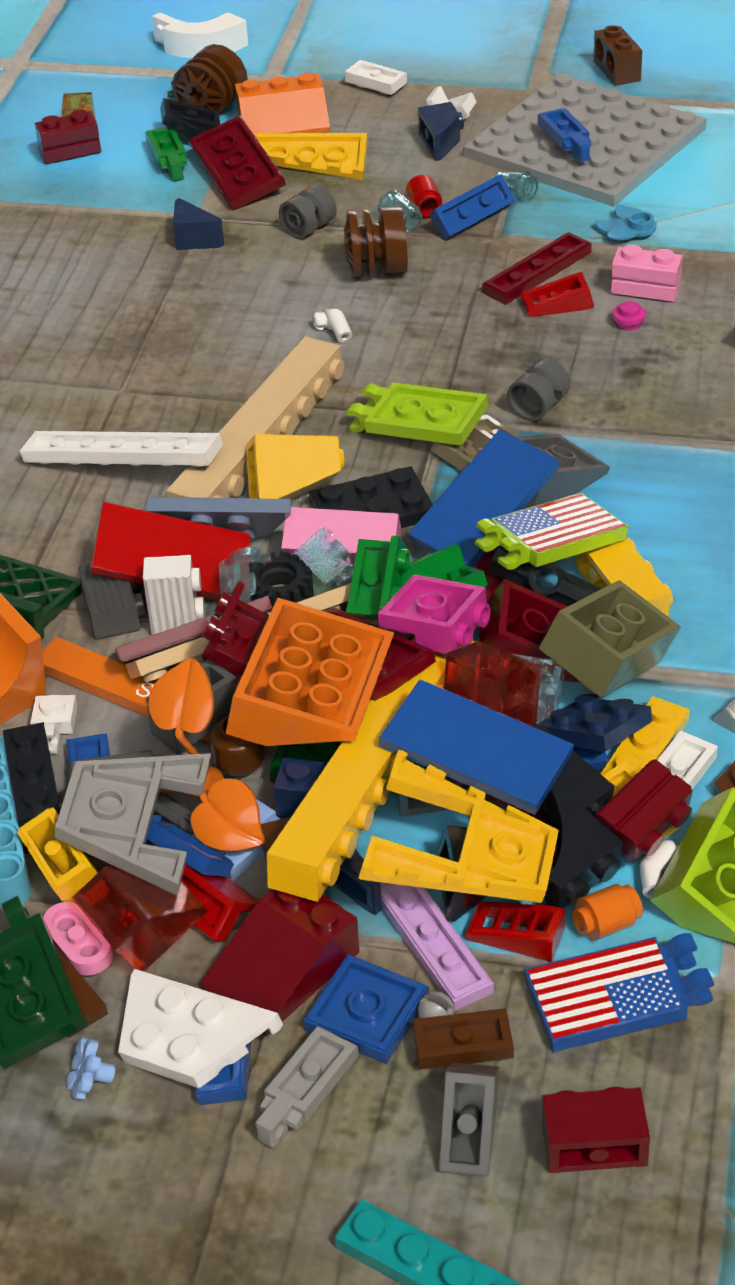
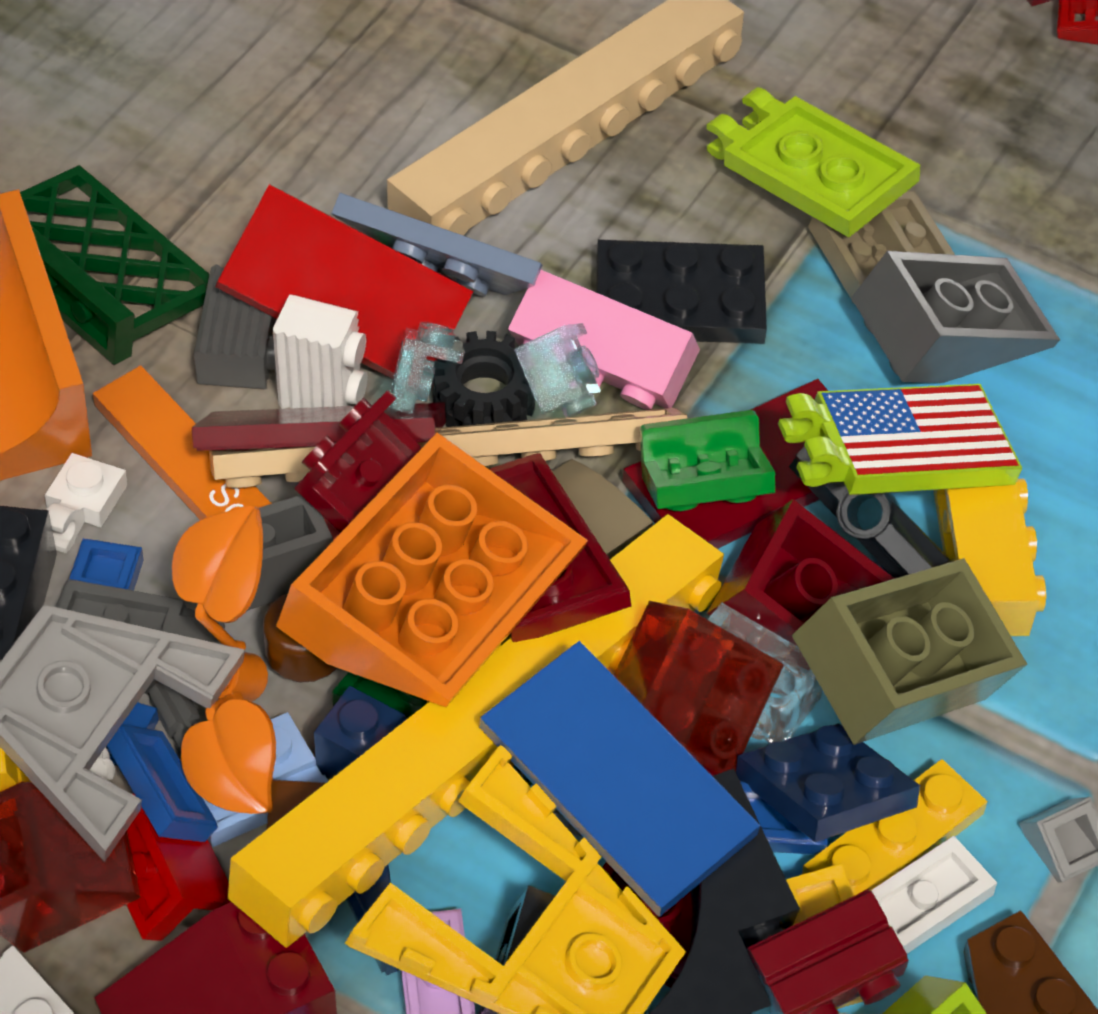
camera: 15 degrees right, 10 degrees up
(122, 448) = (359, 88): white plate -> none
(291, 464) = (580, 195): yellow slope -> none
(376, 575) = (613, 434): green bracket -> none
(437, 612) = (666, 526): dark pink plate -> none
(492, 485) = (835, 340): blue tile -> none
(538, 389) = (1007, 176): dark grey wheel -> none

